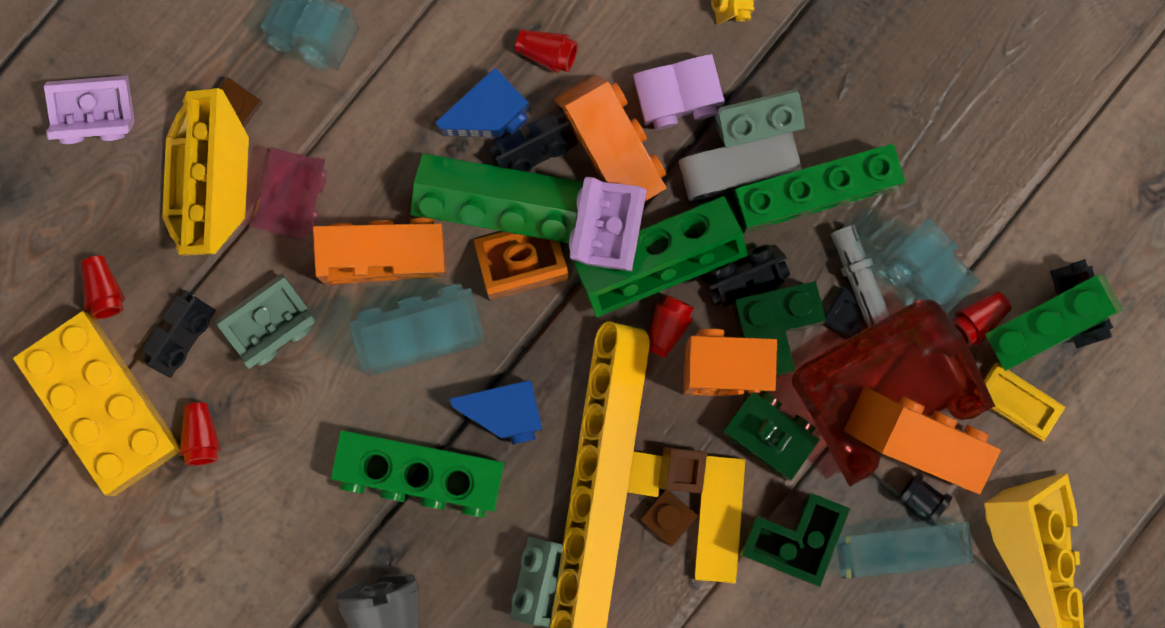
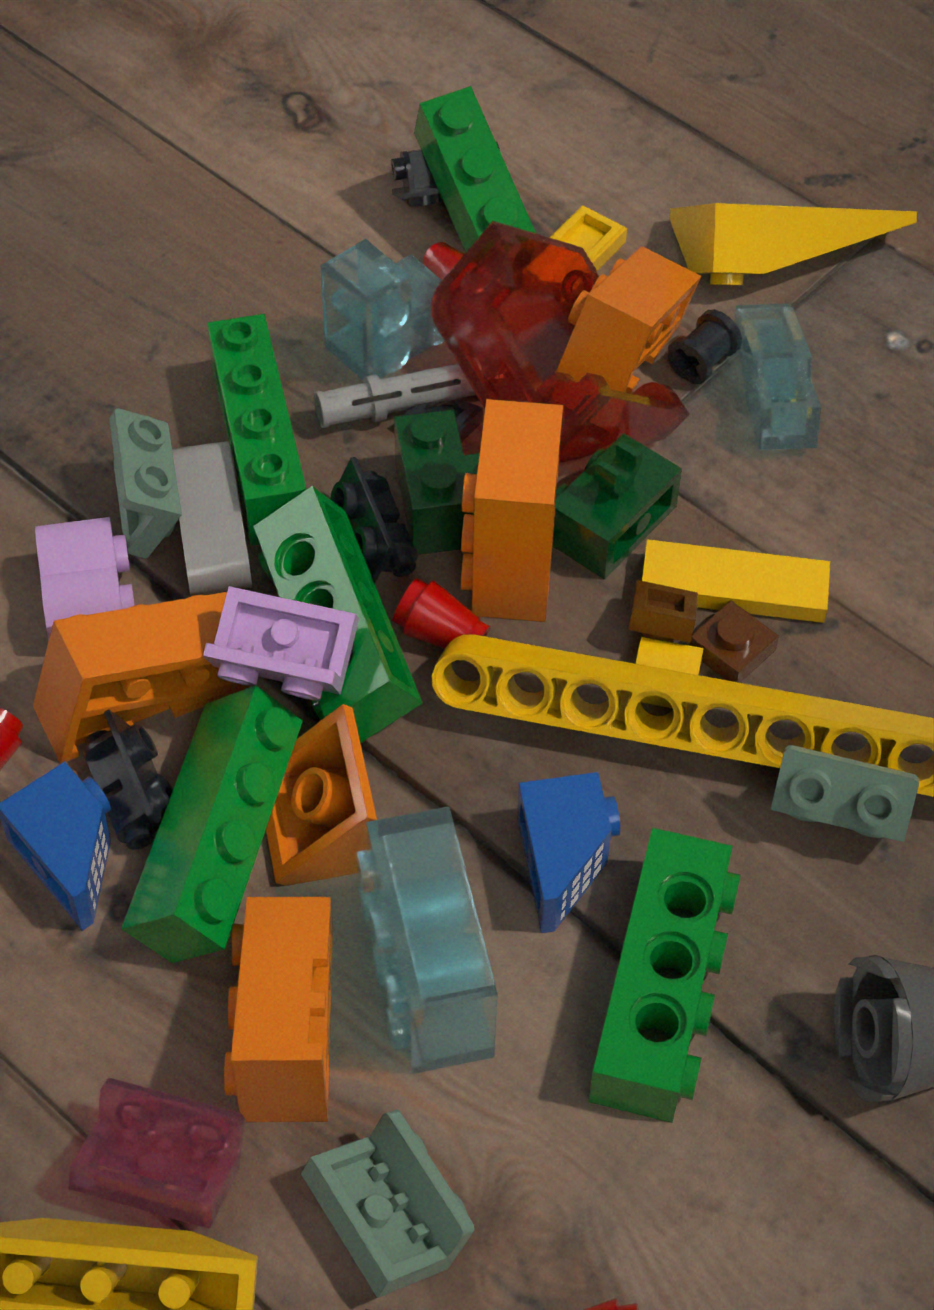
camera: 85 degrees left, 30 degrees down
(805, 548) = (773, 467): dark green brick -> none

